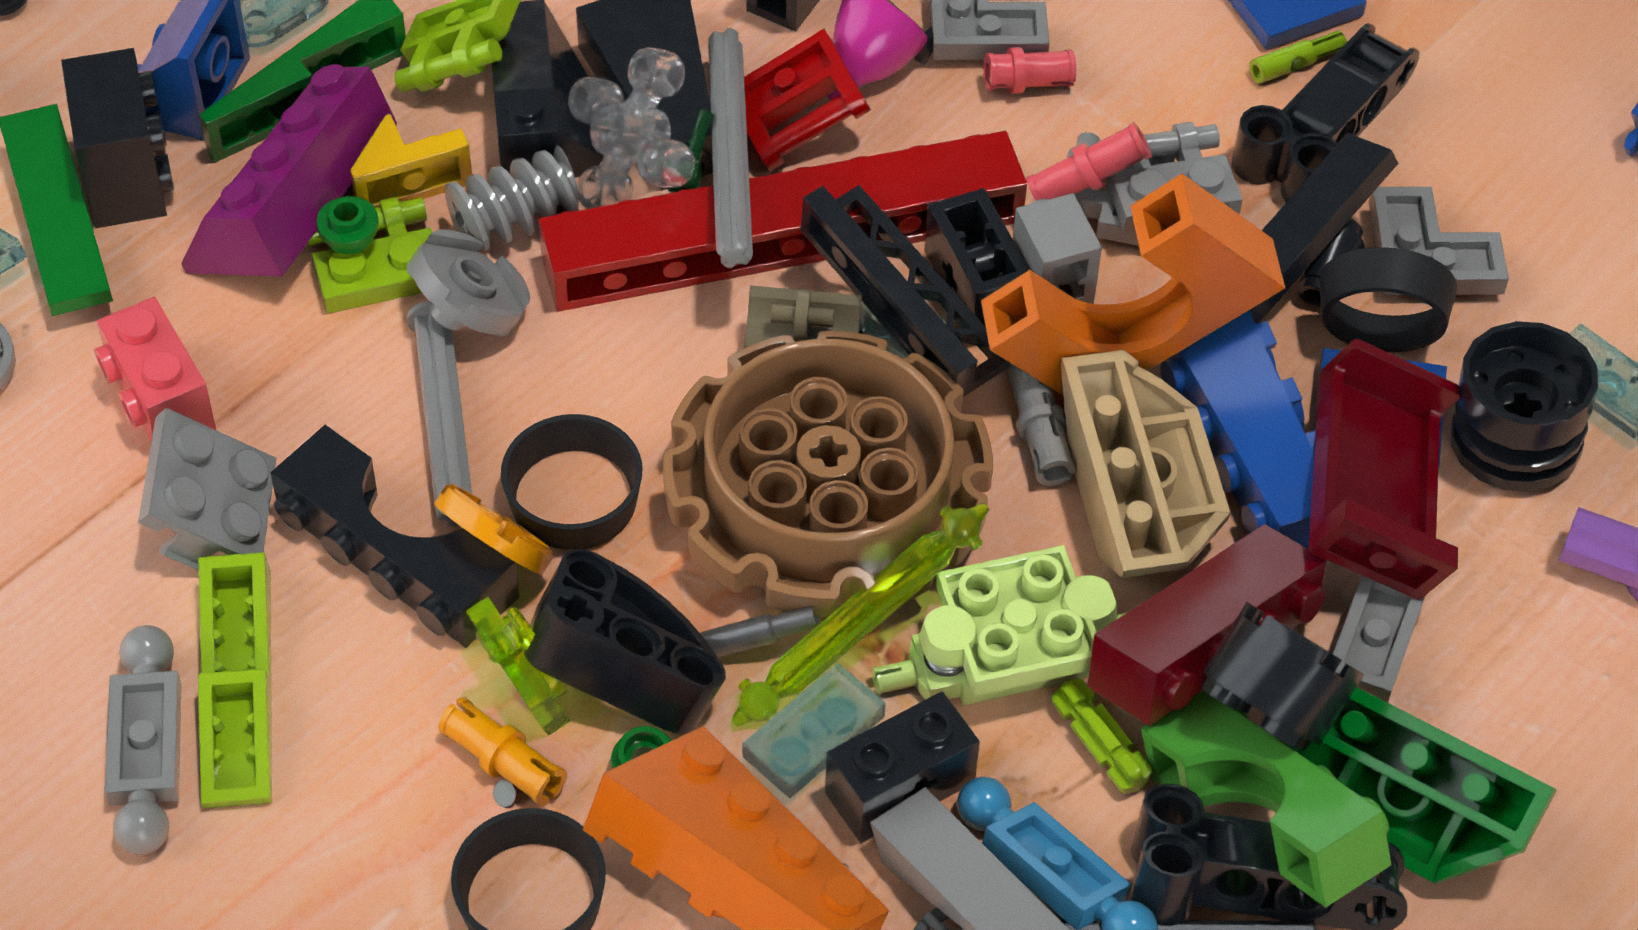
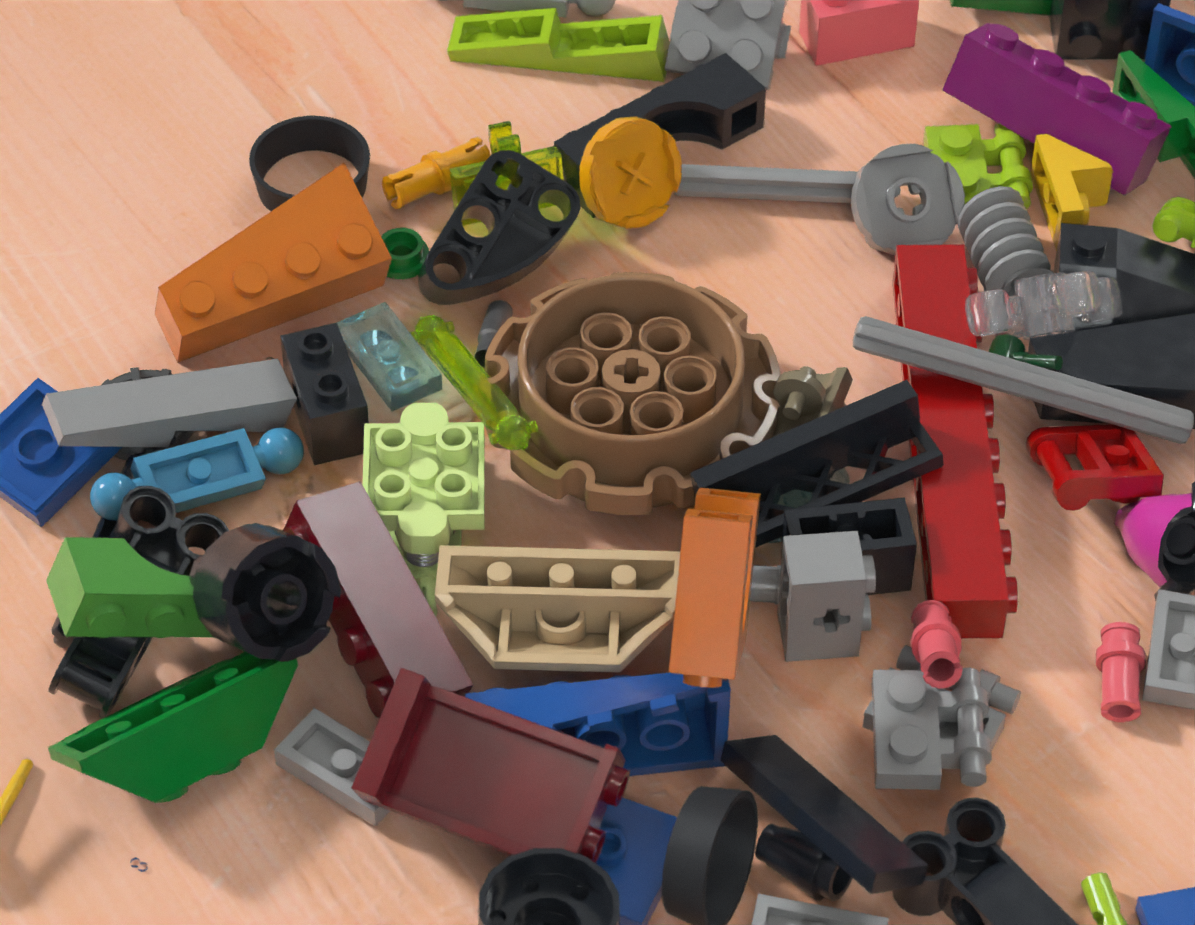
camera: 105 degrees right, 5 degrees down
(347, 224) = (987, 130): green plate -> none
(568, 434) = (692, 212): black tyre -> none

